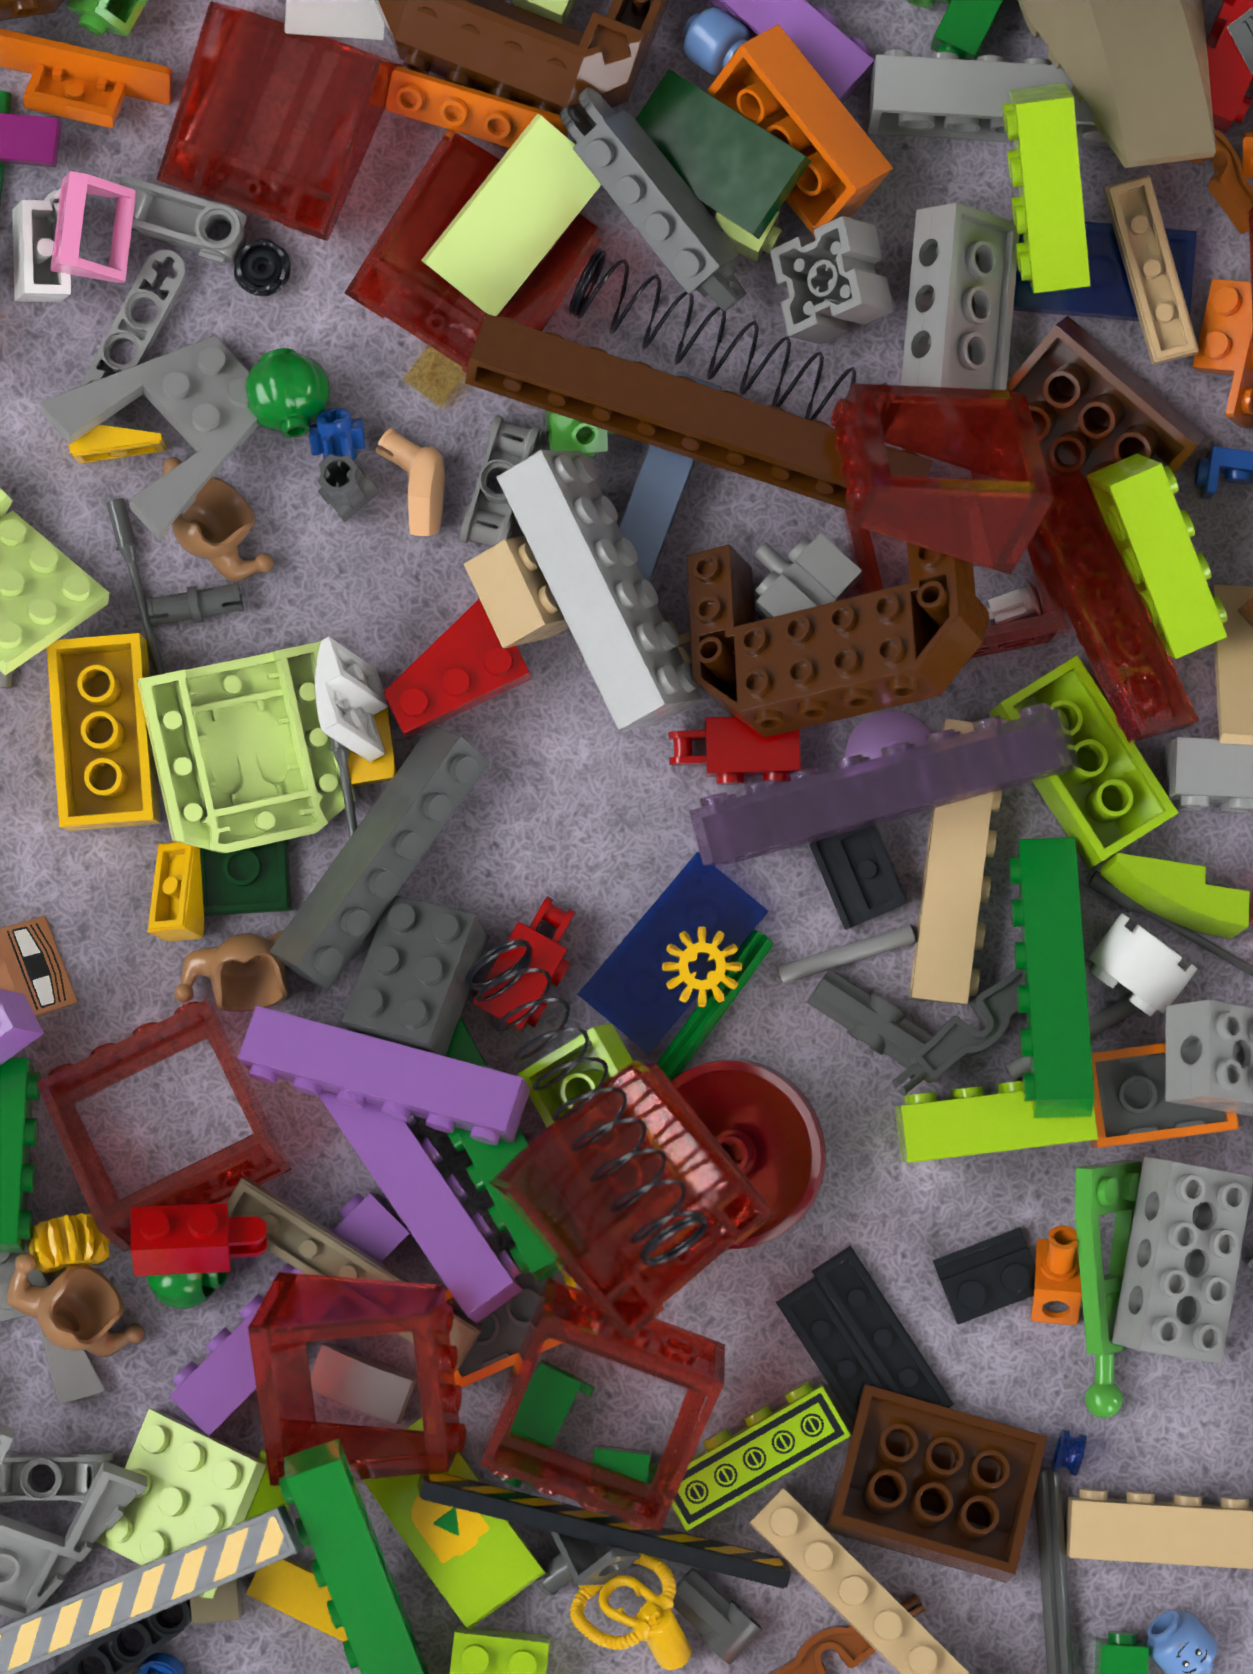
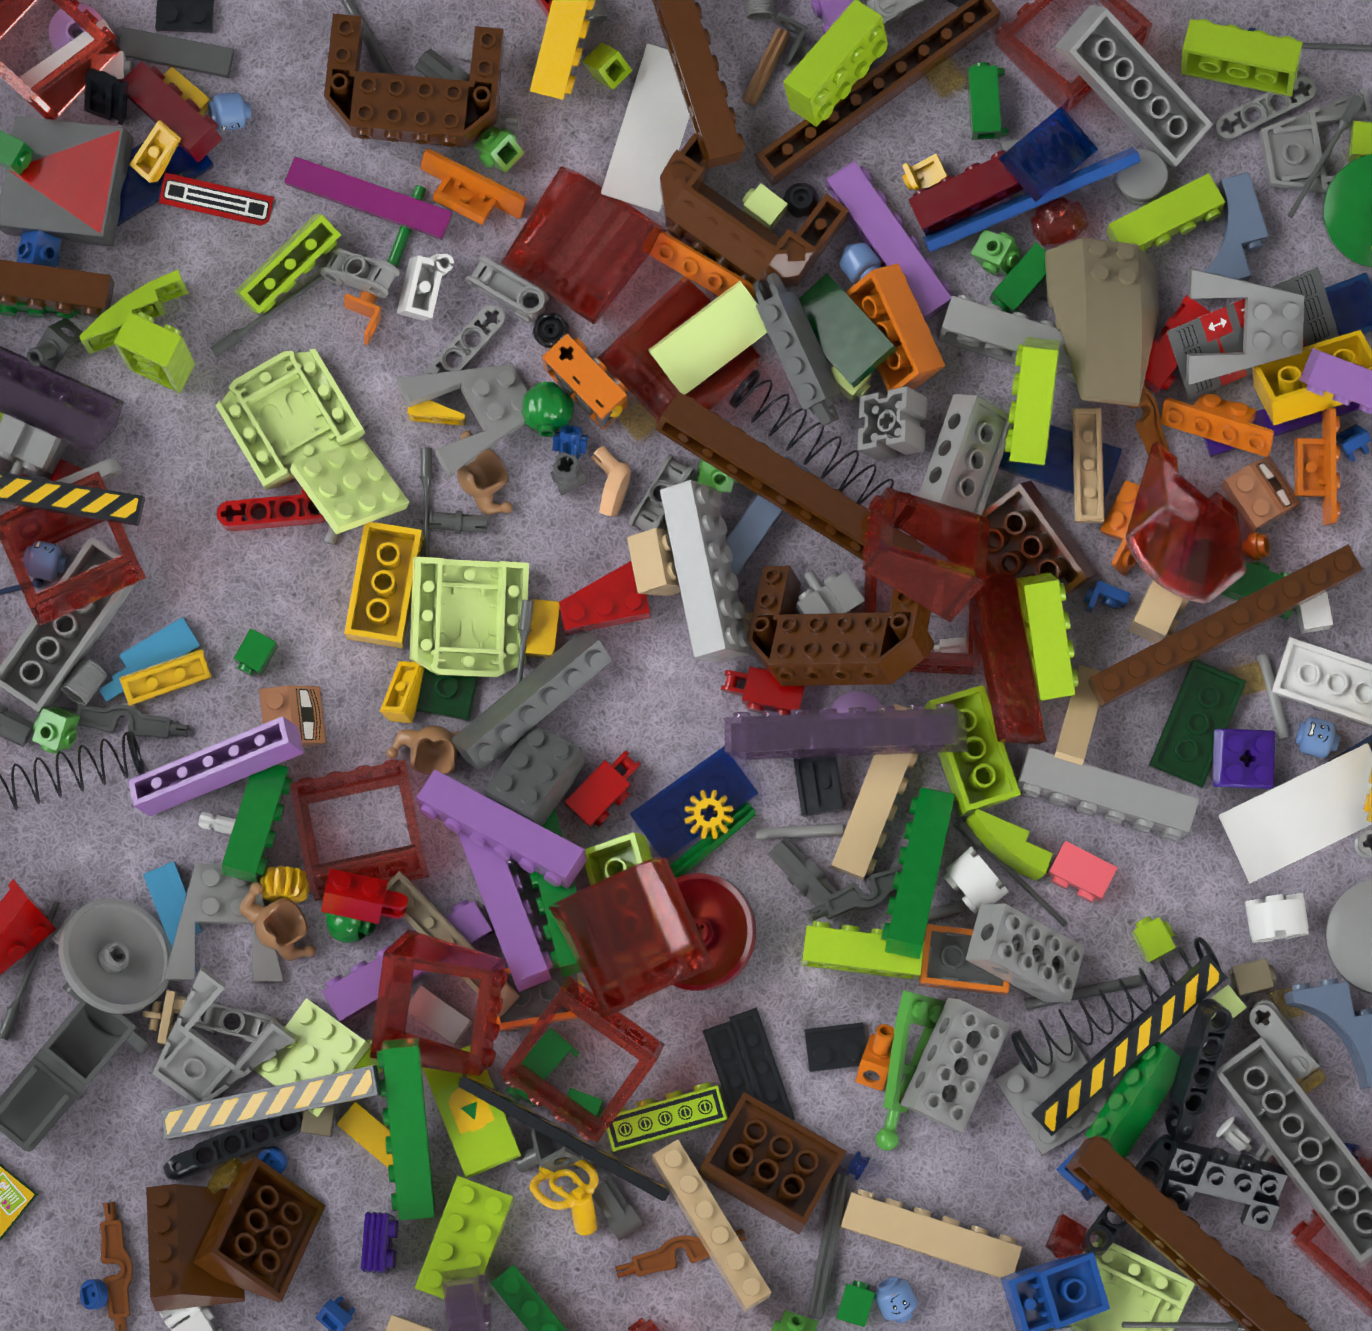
camera: 10 degrees right, 5 degrees down
(70, 221) = (442, 278): bright pink tile -> none
(336, 332) = (585, 380): none -> orange piece
(347, 698) = (537, 600): white slope -> none
(519, 969) = (589, 789): black piece -> none

